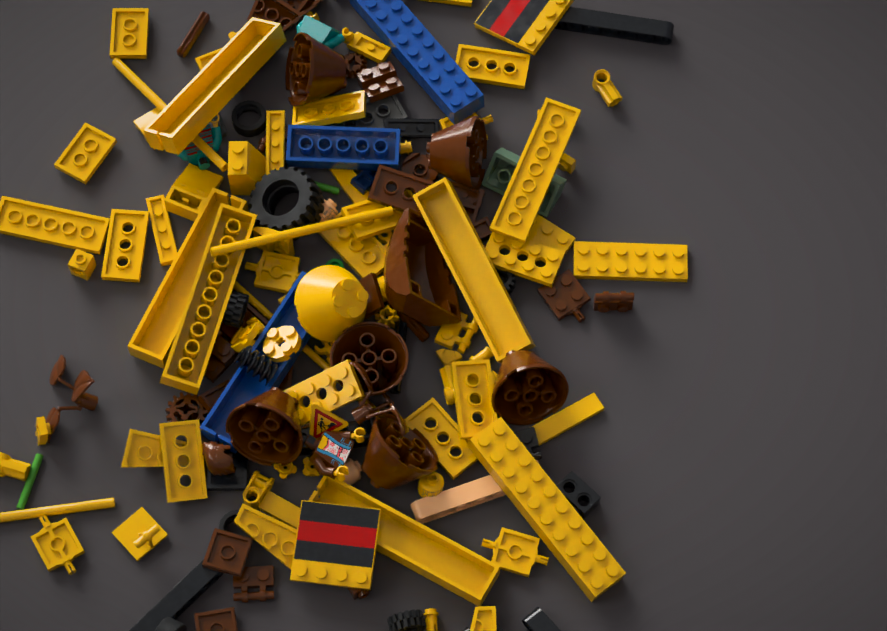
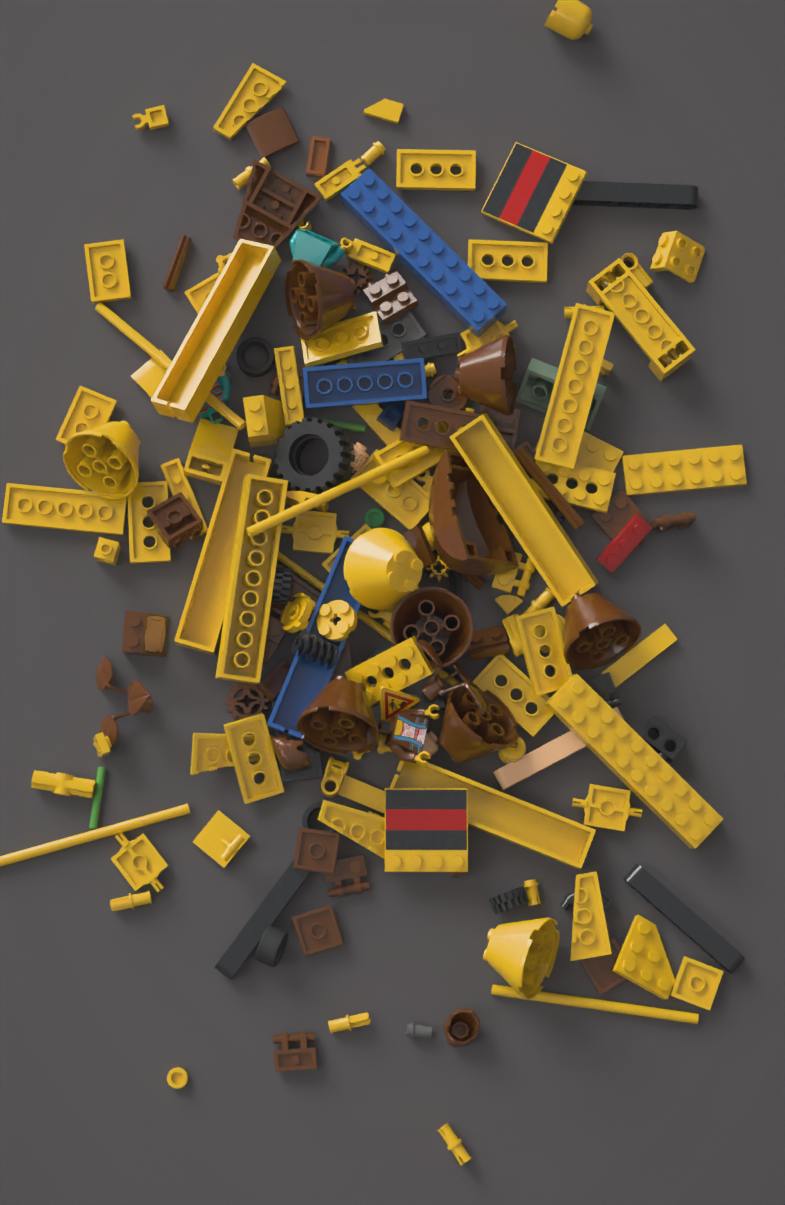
camera: 10 degrees left, 15 degrees up
(42, 579) = (131, 901): none -> yellow axle
(92, 180) = (104, 459): none -> yellow cone
(102, 340) = (144, 634): none -> reddish brown slope
(149, 244) = (175, 520): none -> reddish brown plate
(422, 388) = (488, 643): none -> reddish brown plate
(500, 256) = (550, 490): none -> reddish brown axle
(564, 315) = (624, 543): none -> red plate
(608, 124) = (641, 318): none -> yellow plate
(649, 79) = (678, 255): none -> yellow bracket

